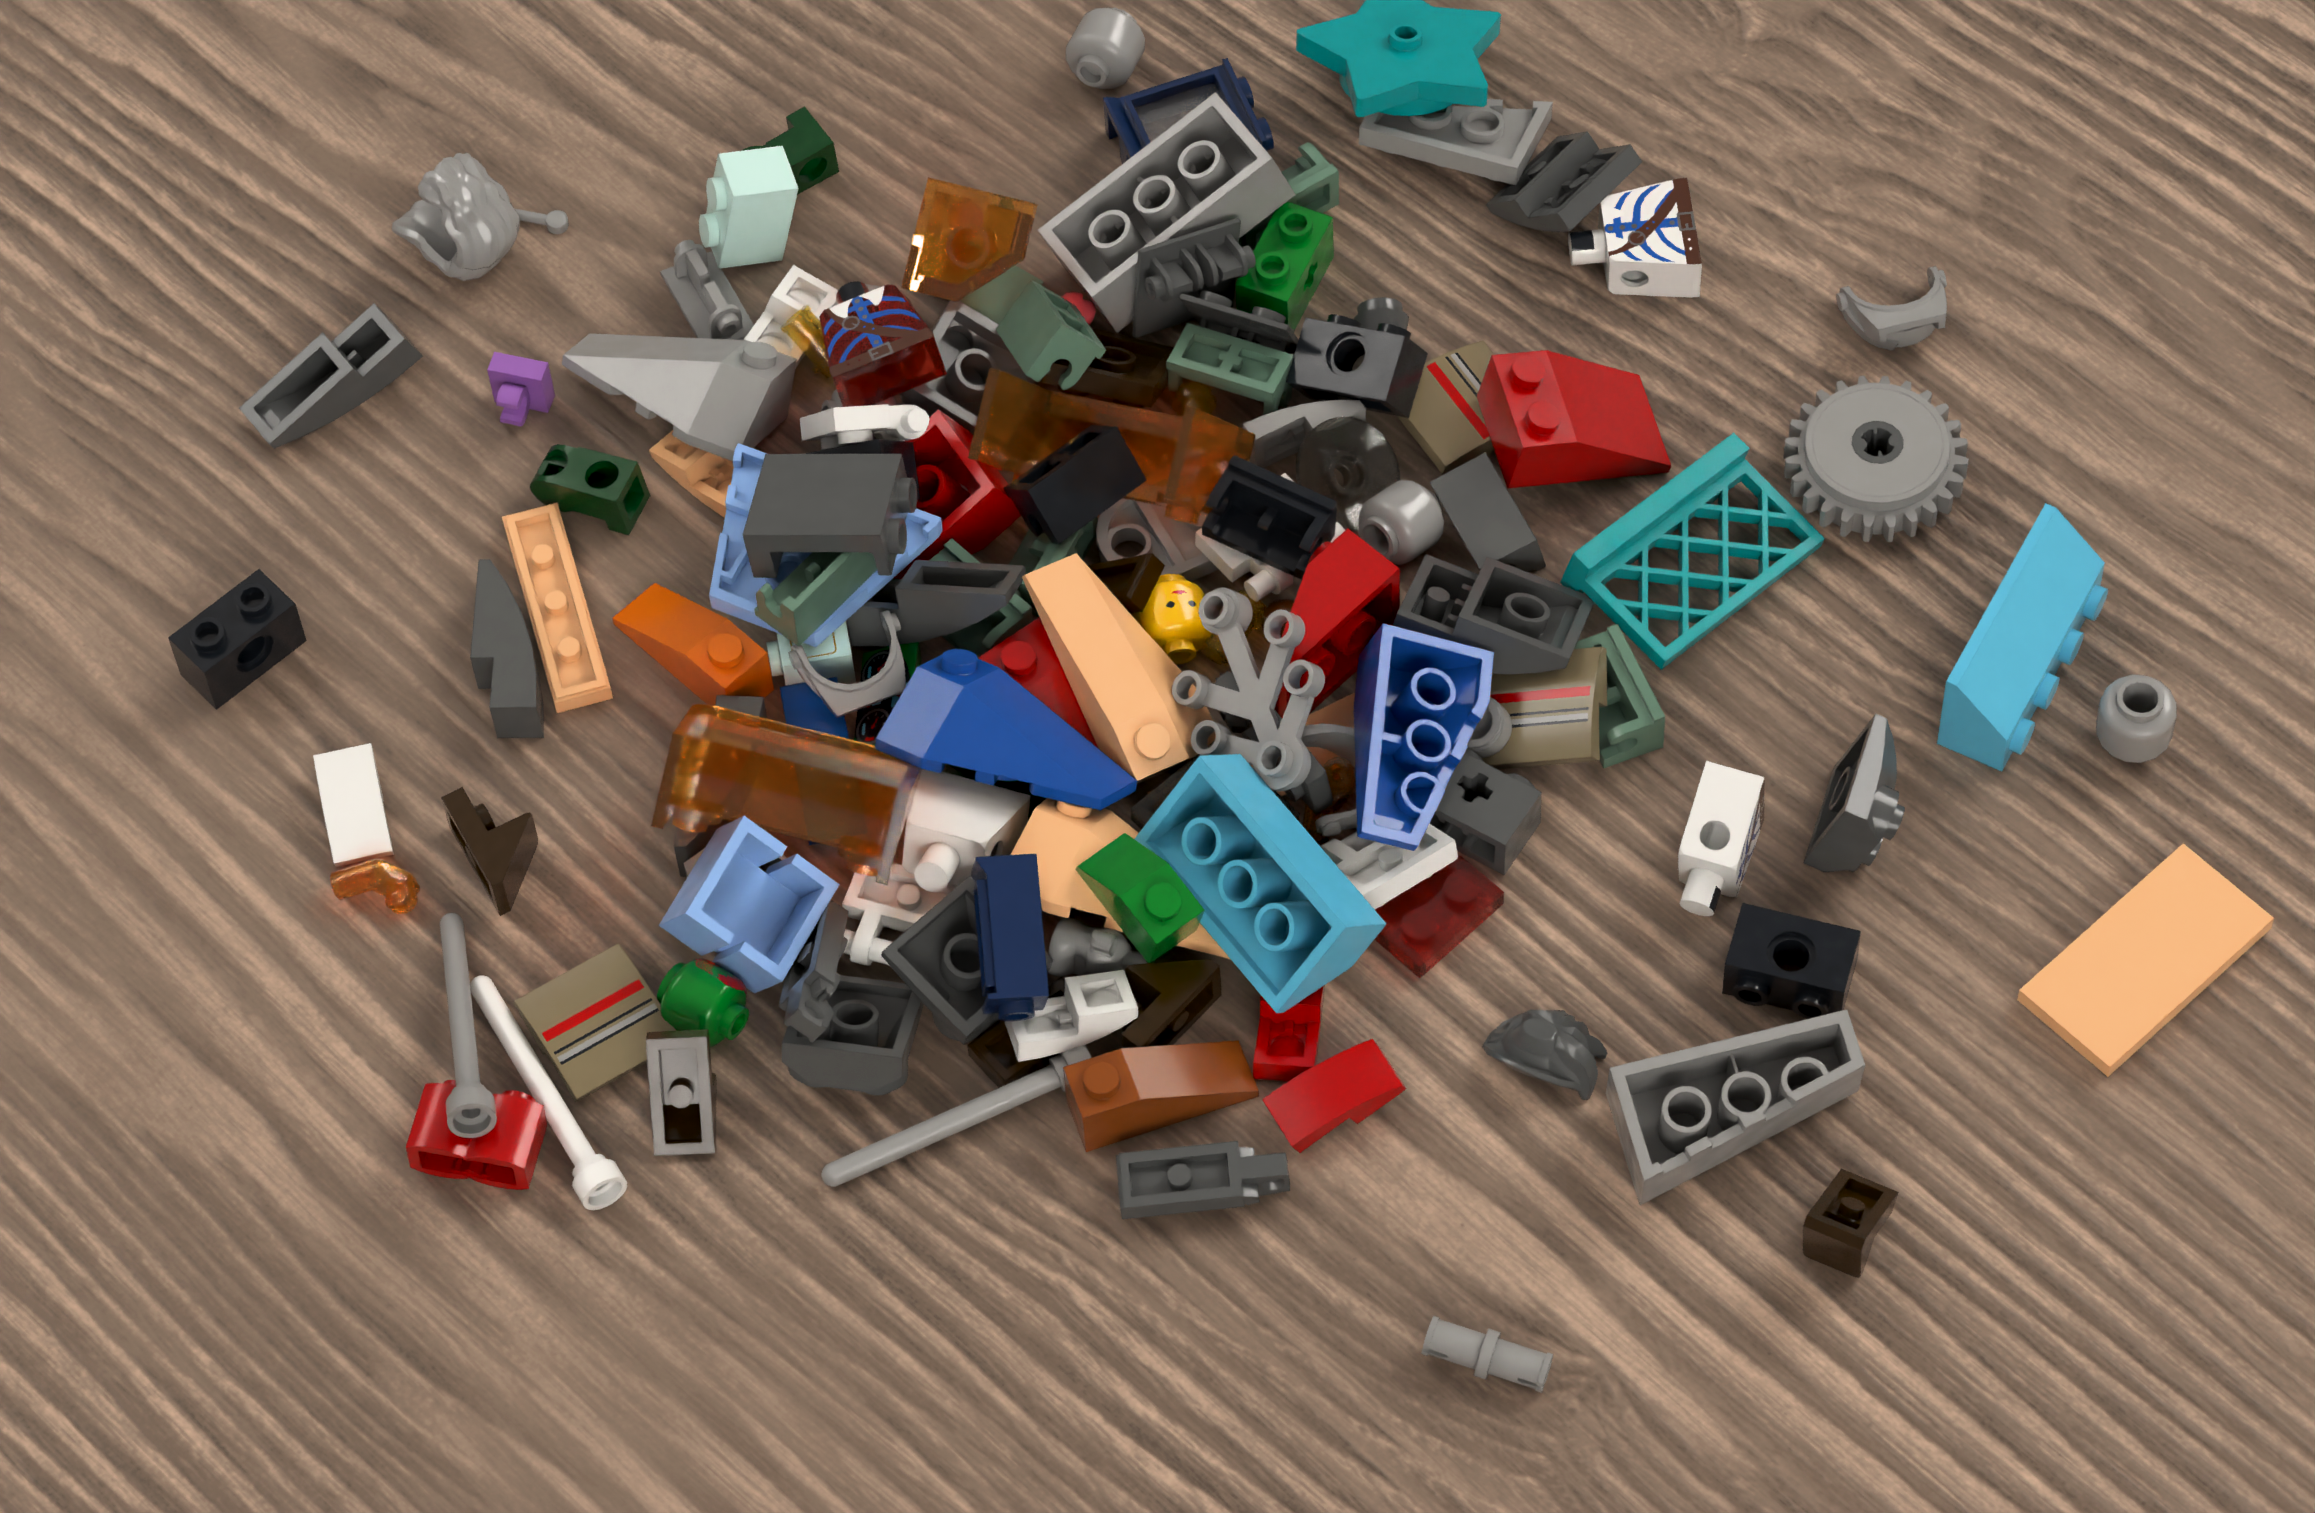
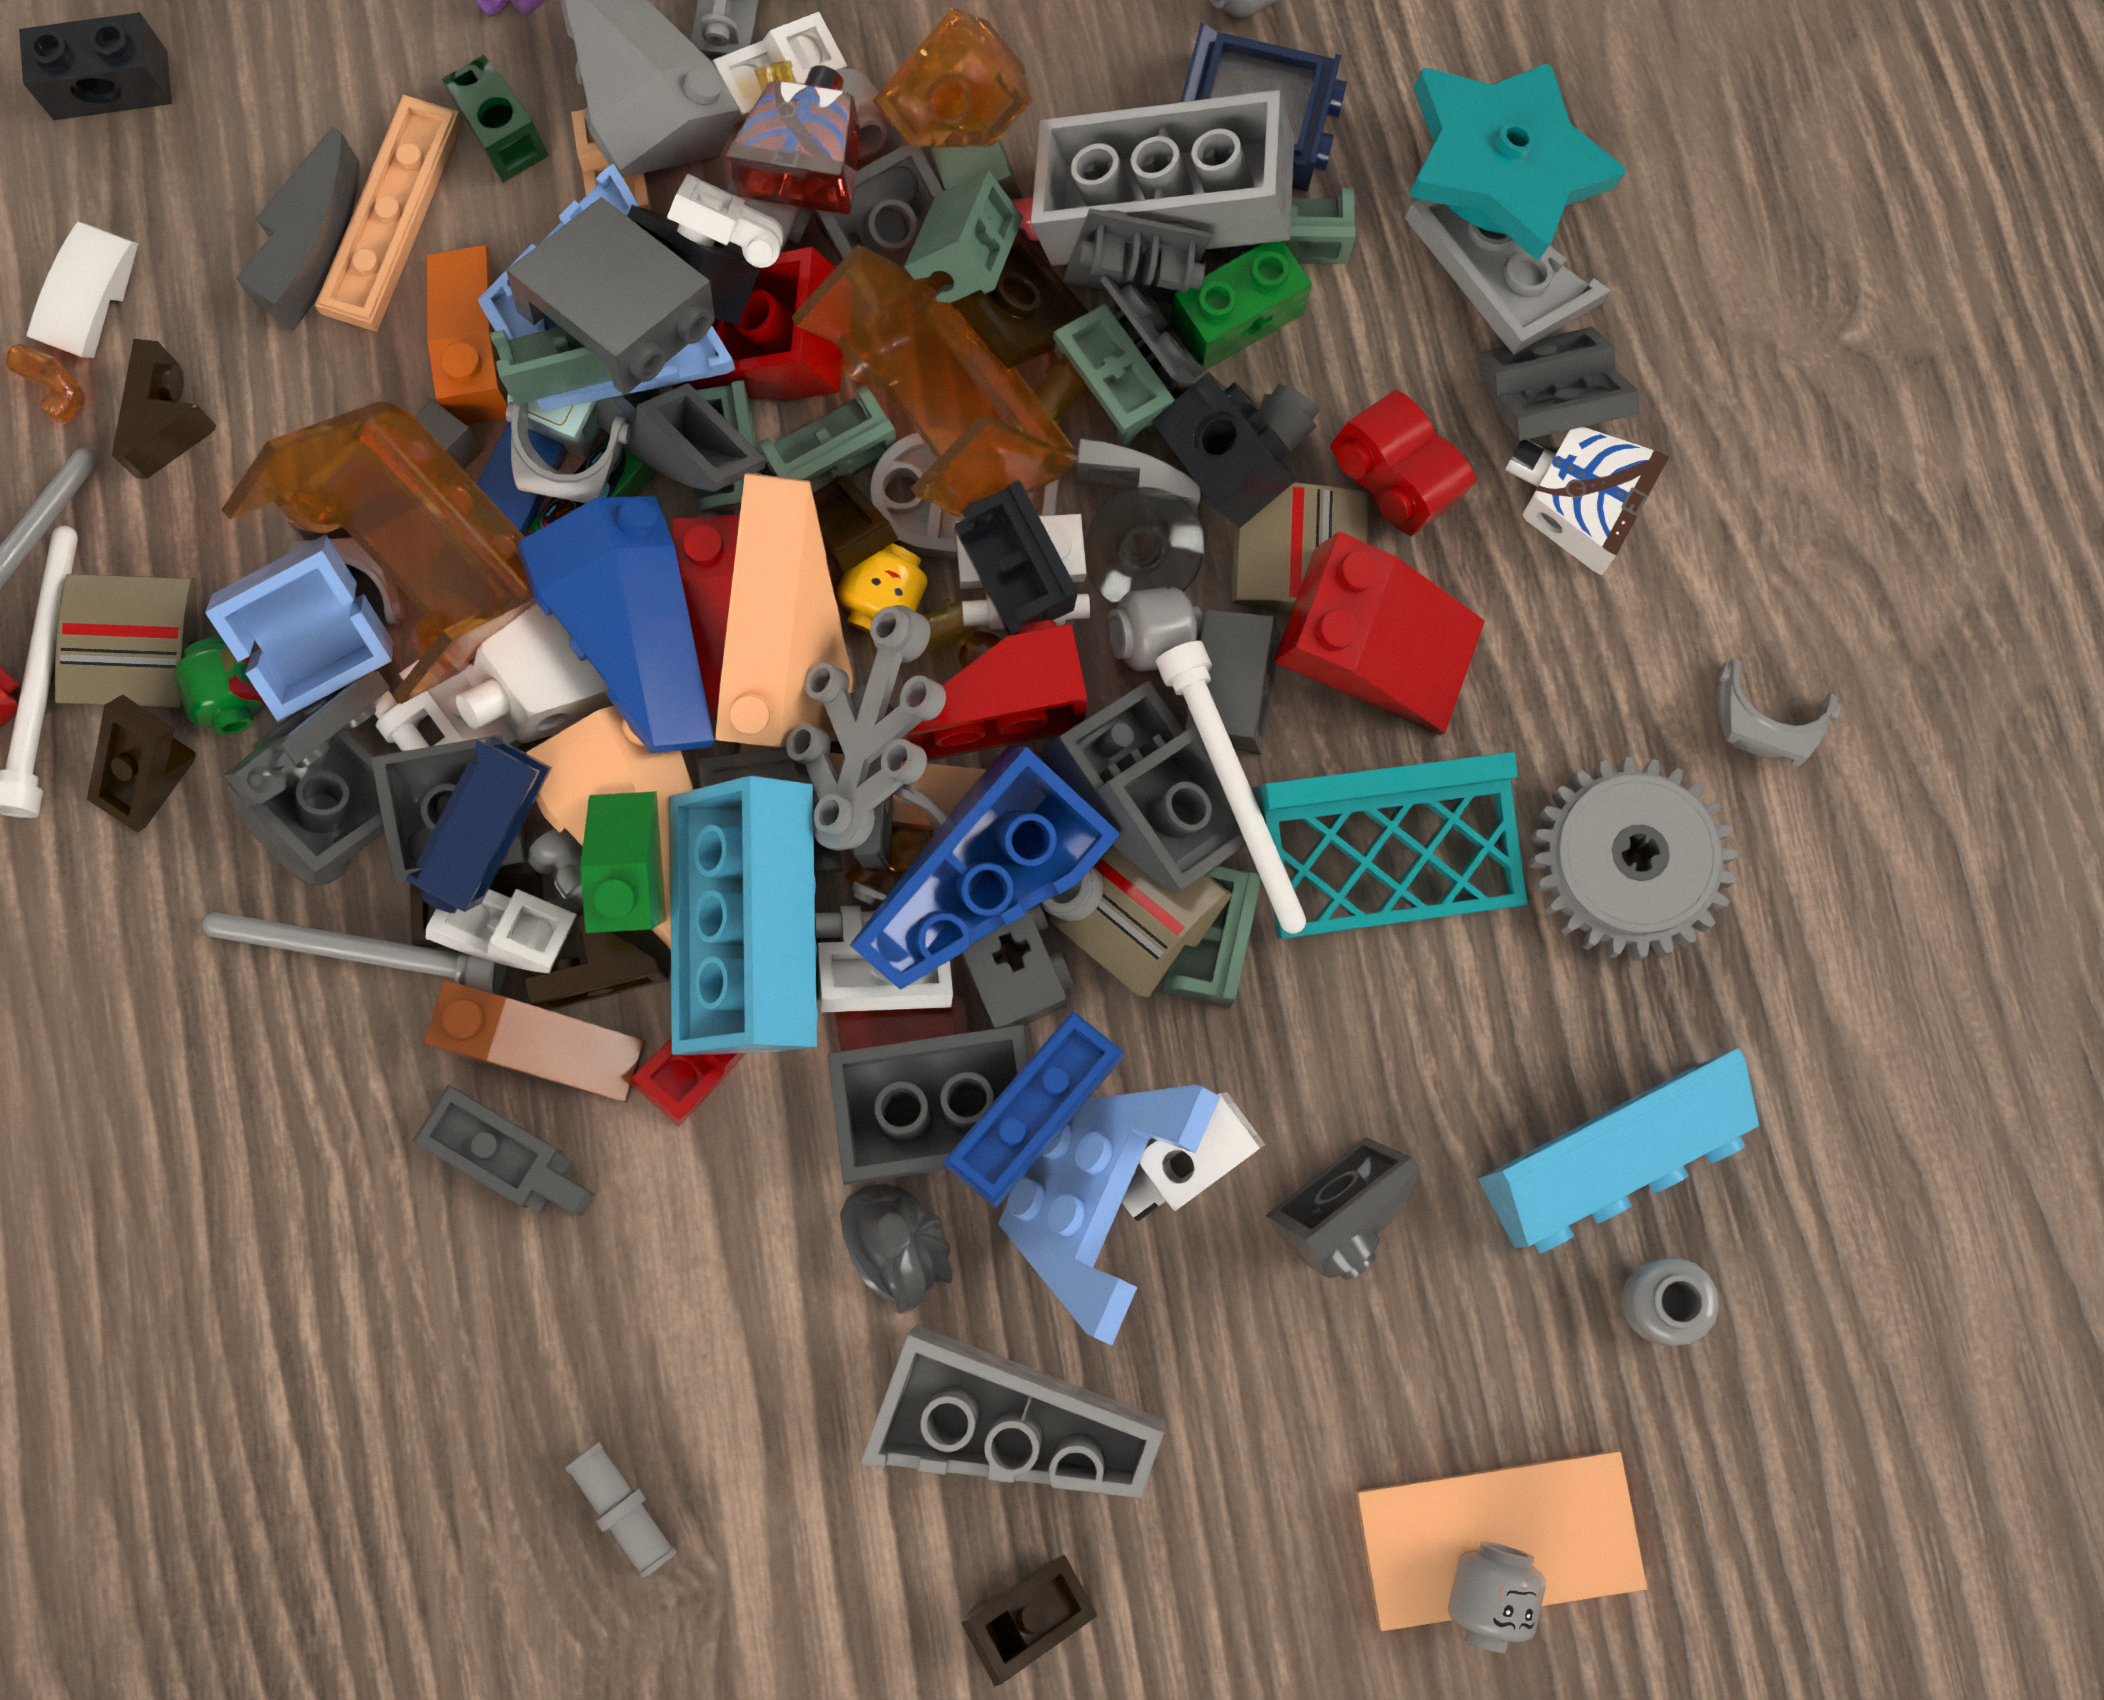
camera: 30 degrees right, 20 degrees up
(1076, 483) = (882, 401): black hinge -> none
(1331, 1092) = (680, 1156): red slope -> none
(1451, 524) = (1187, 671): none -> white piece
(1494, 301) = (1403, 462): none -> red brick
(1497, 923) = (917, 1099): none -> dark grey slope
(1579, 867) = (1033, 1109): none -> blue tile
(1647, 899) = (1077, 1185): none -> light blue wing
(1774, 938) = (1207, 1337): black brick -> none
(2168, 973) = (1497, 1596): none -> light grey head

